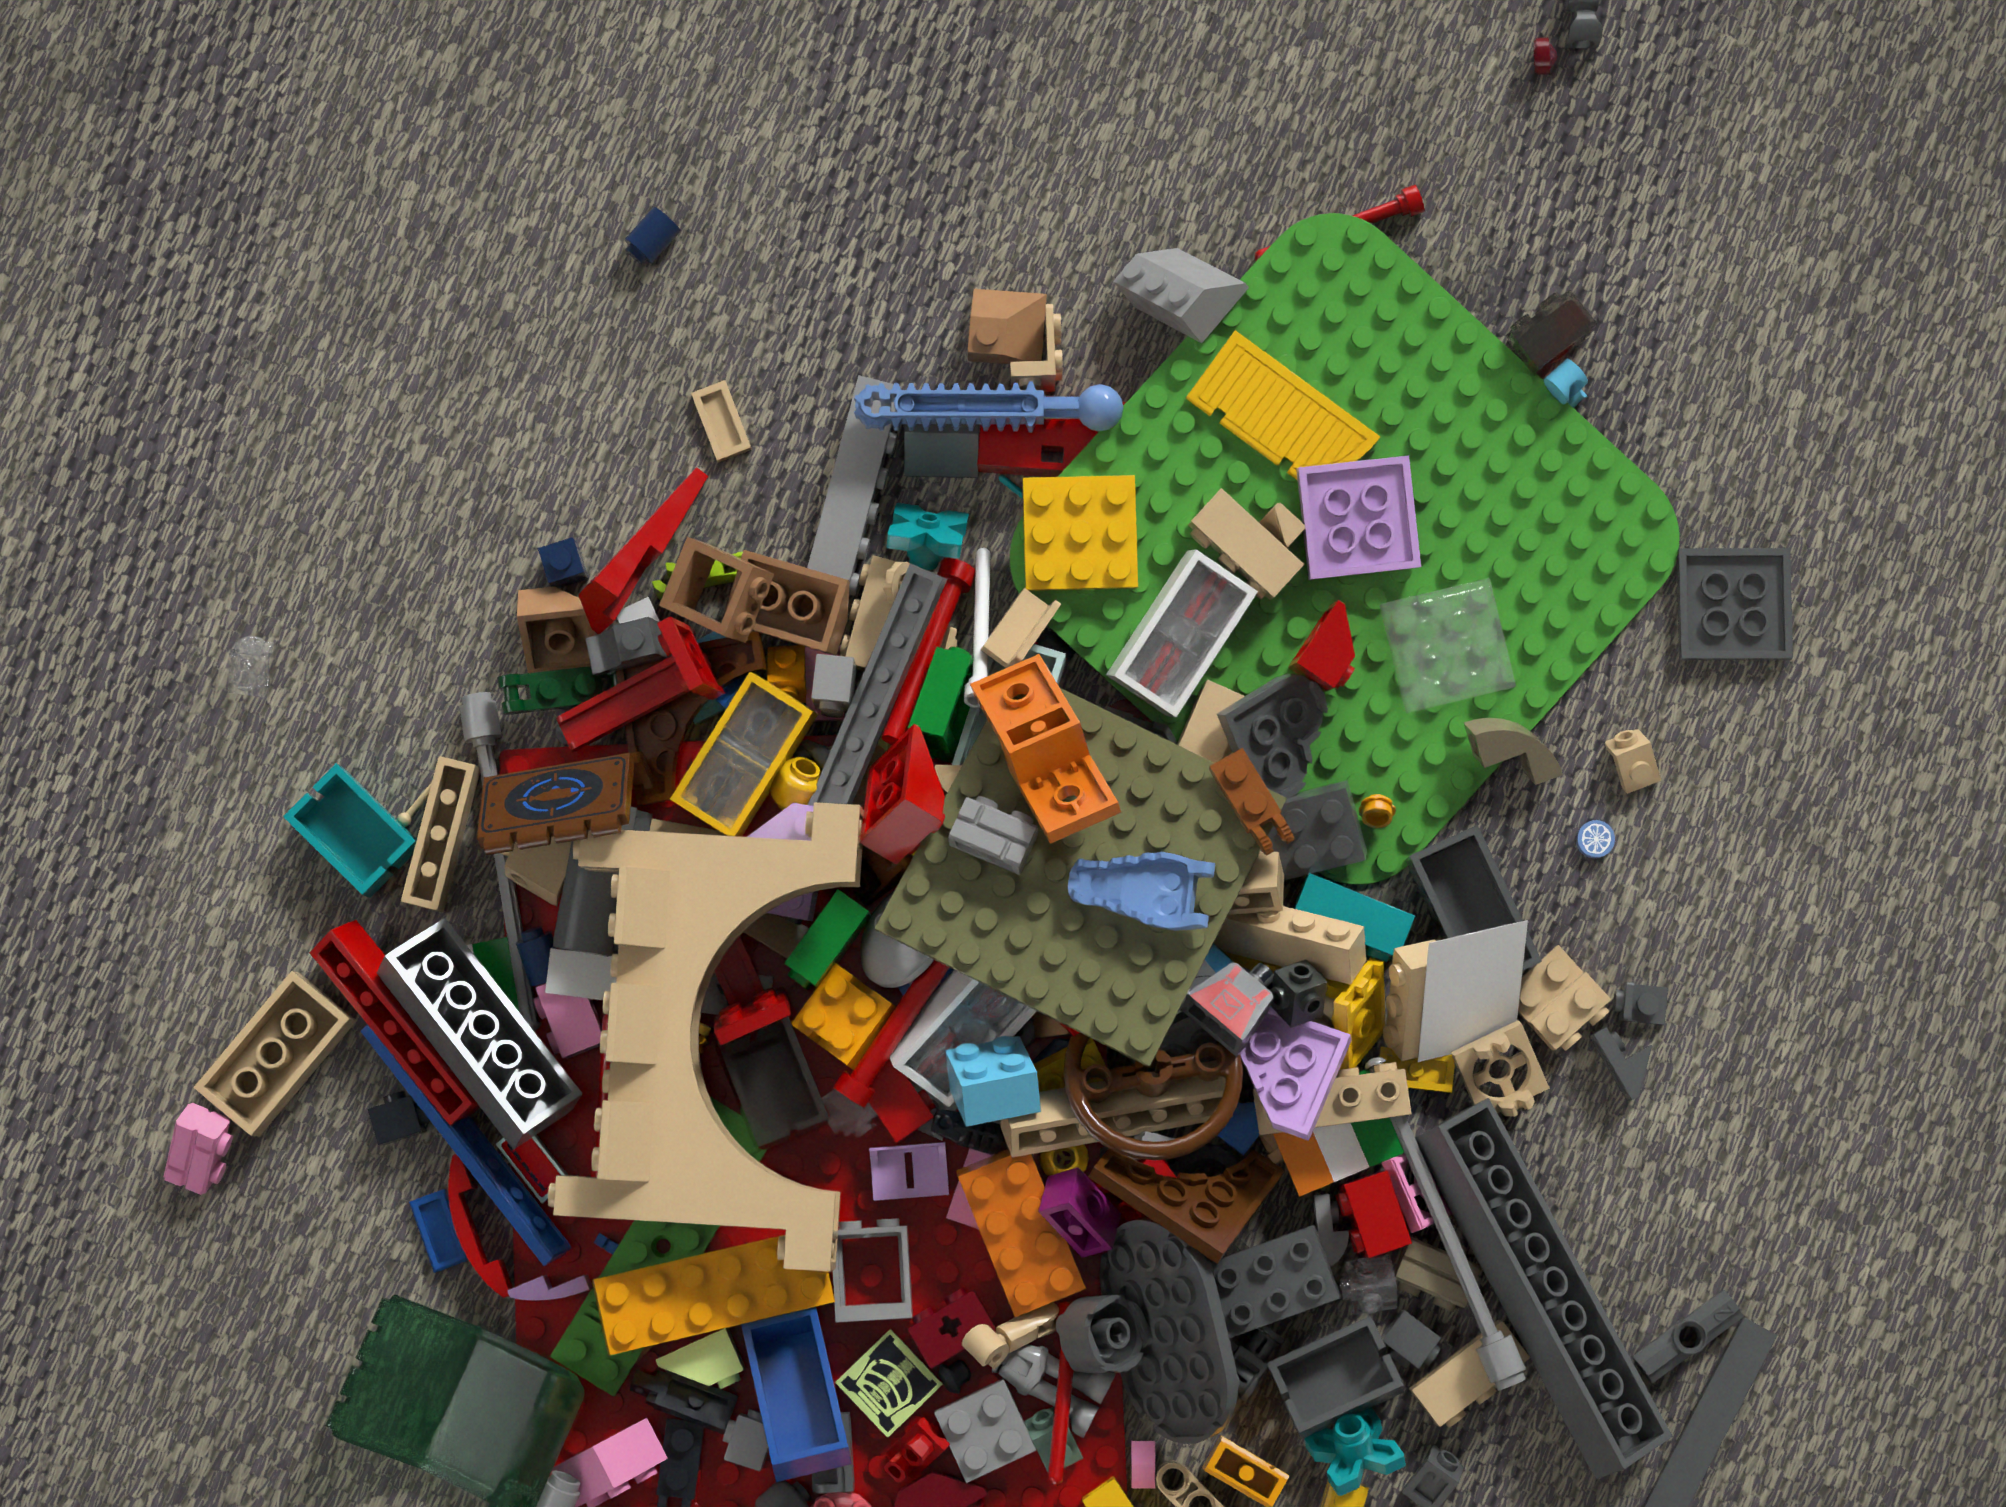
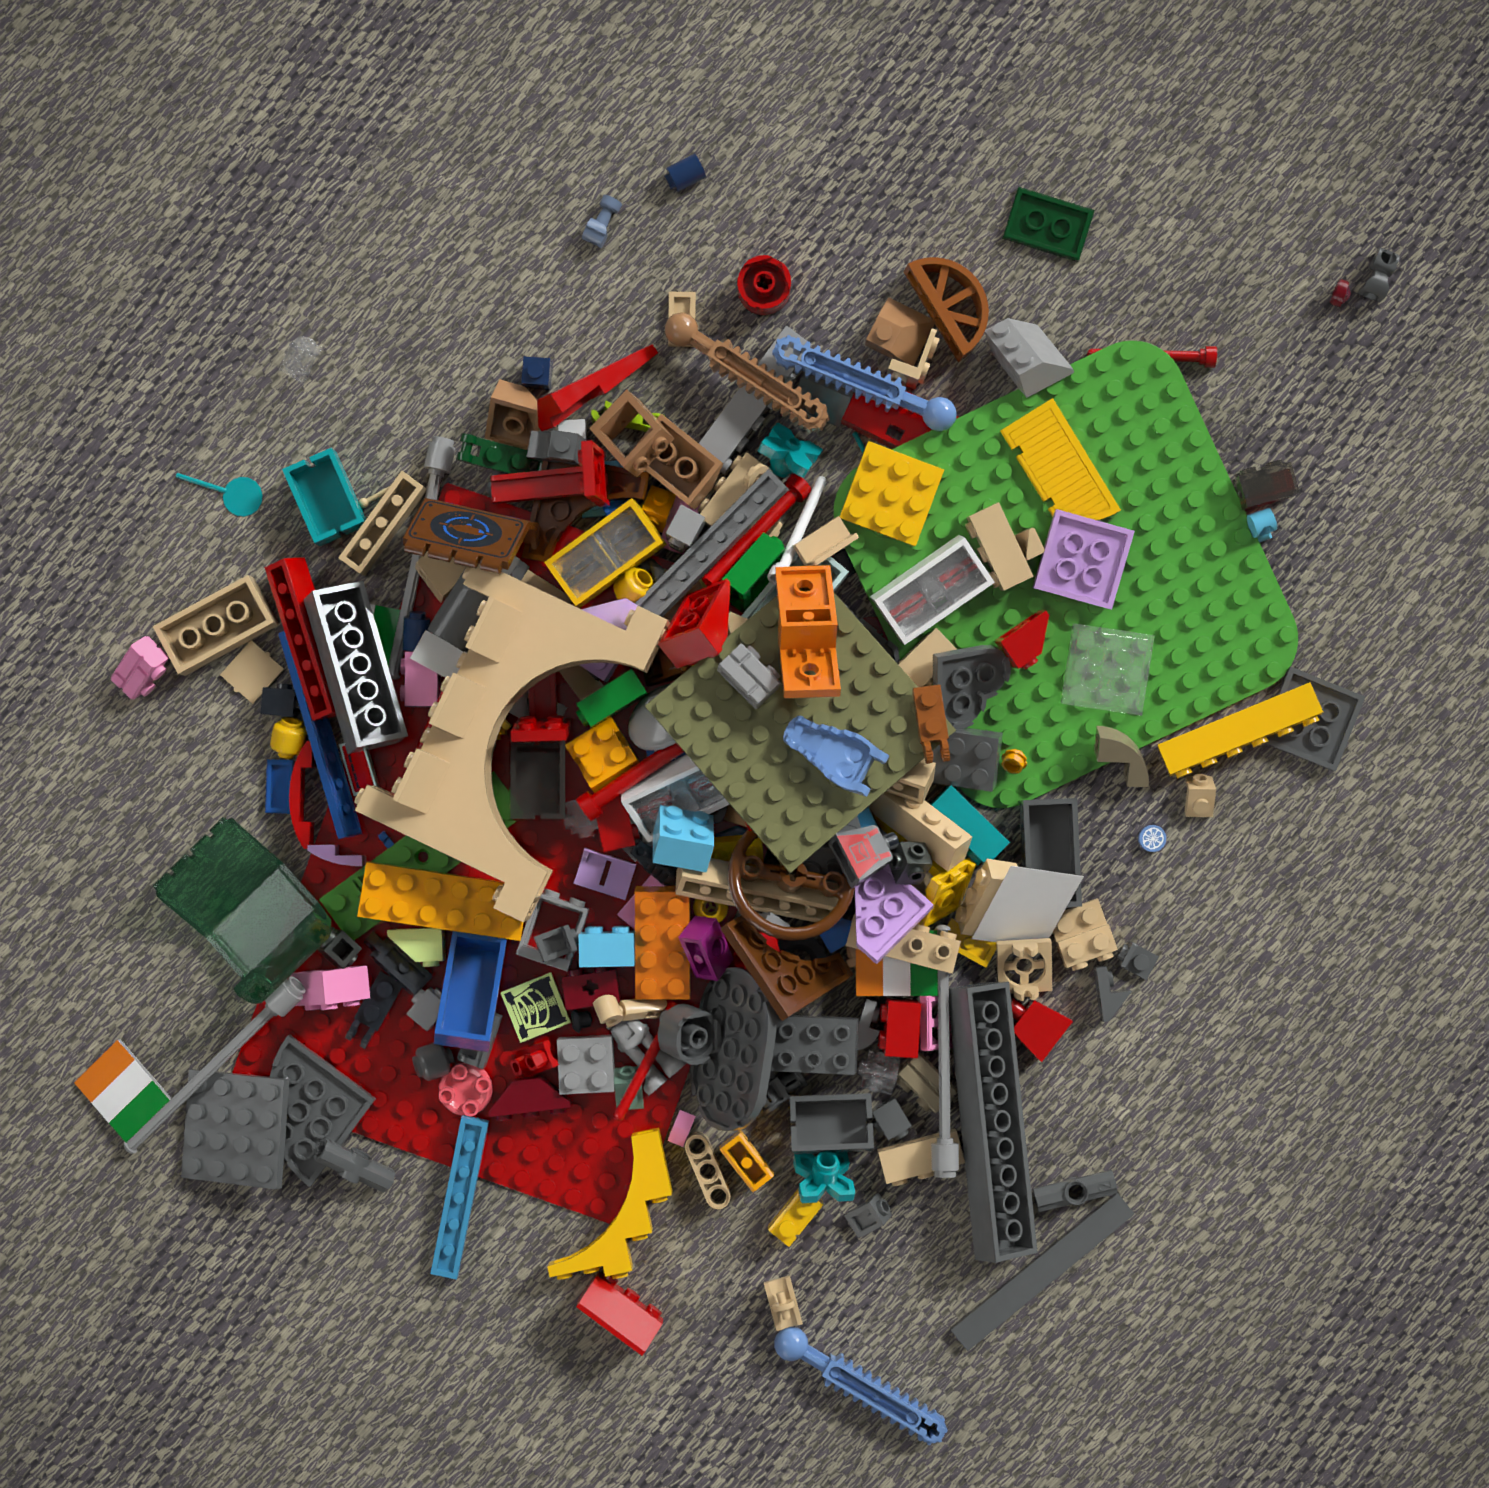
camera: 20 degrees right, 5 degrees up
(240, 875) = (240, 496): none -> teal piece
(344, 1096) = (252, 671): none -> tan piece
(426, 1161) = (288, 737): none -> yellow head
(566, 352) = (596, 229): none -> sand blue leg
(603, 1410) = (340, 949): none -> pearl dark grey brick
(729, 434) = (682, 330): none -> medium nougat gear
(818, 318) = (775, 276): none -> red brick
(883, 1284) = (556, 943): none -> dark grey bracket
(951, 1265) = (607, 948): none -> medium azure brick
(1043, 278) = (938, 309): none -> dark orange window
(1139, 117) = (1048, 224): none -> dark green tile
(1551, 1141) = (1038, 1026): none -> red torso
(1649, 654) = (1240, 729): none -> yellow brick

